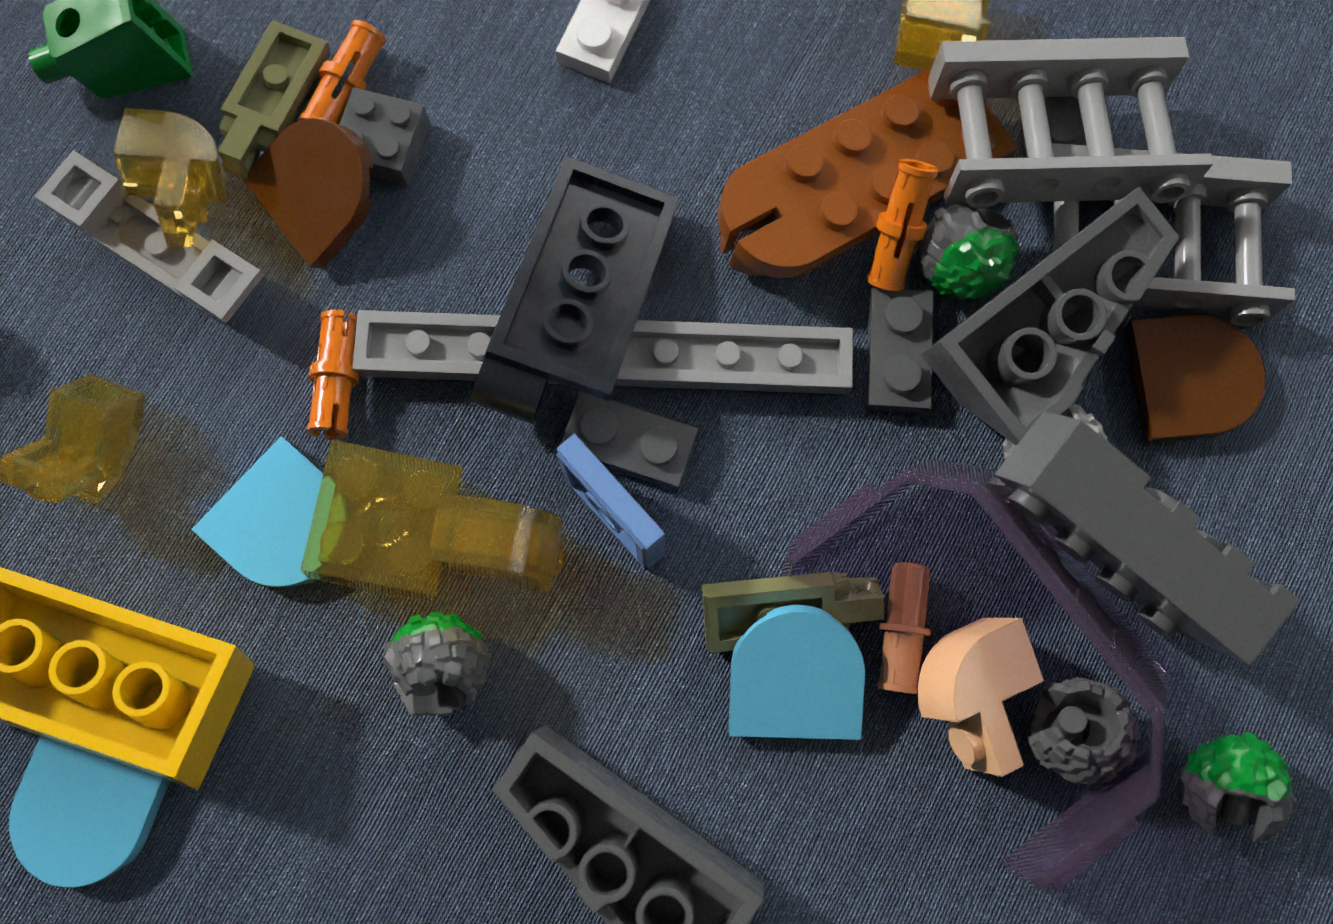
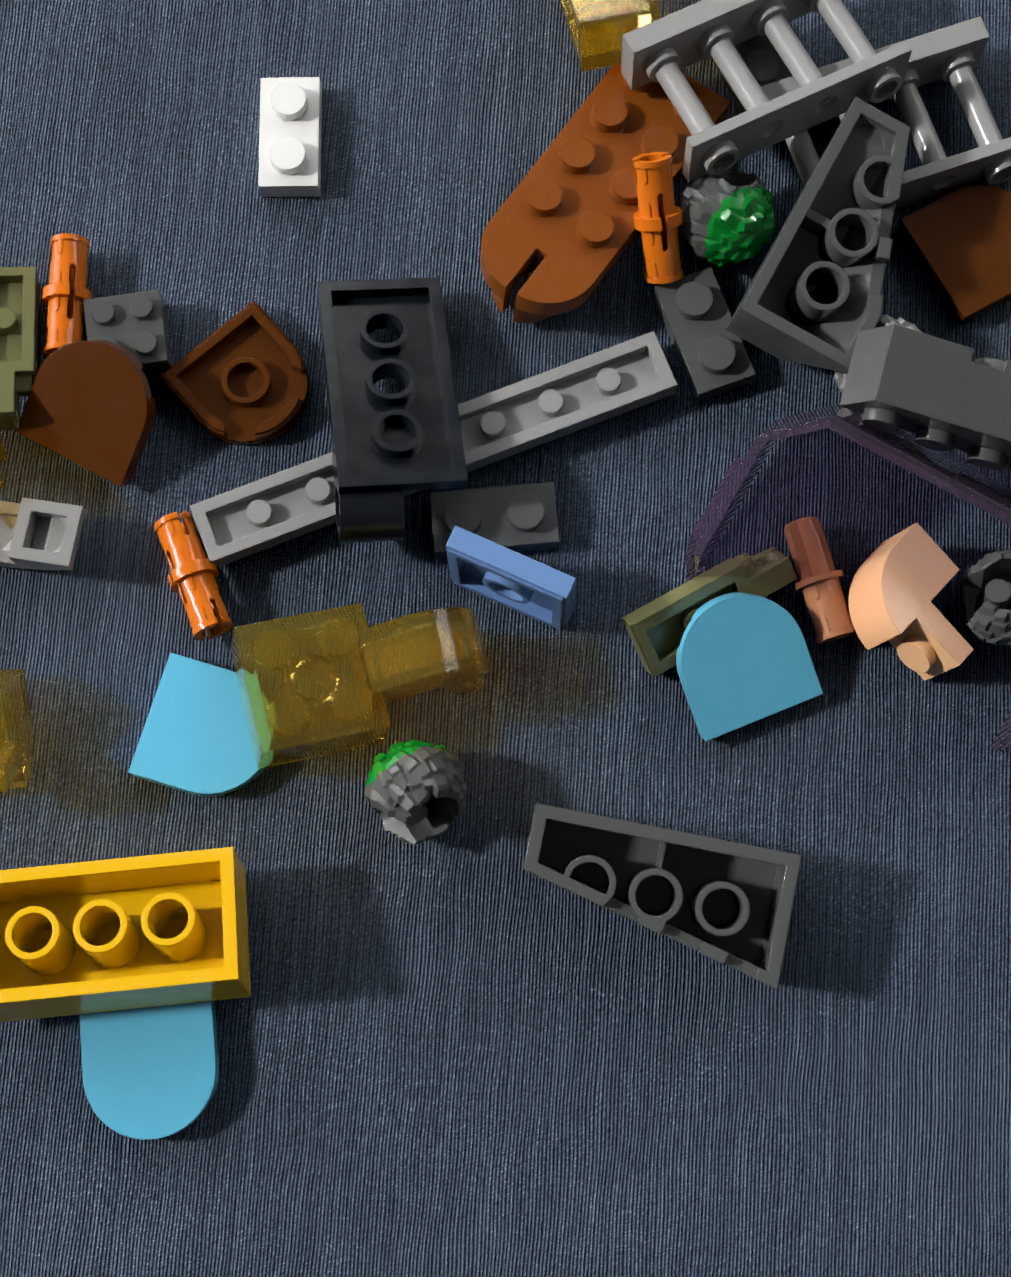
camera: 20 degrees left, 0 degrees up
(463, 218) = (242, 380): none -> reddish brown tile

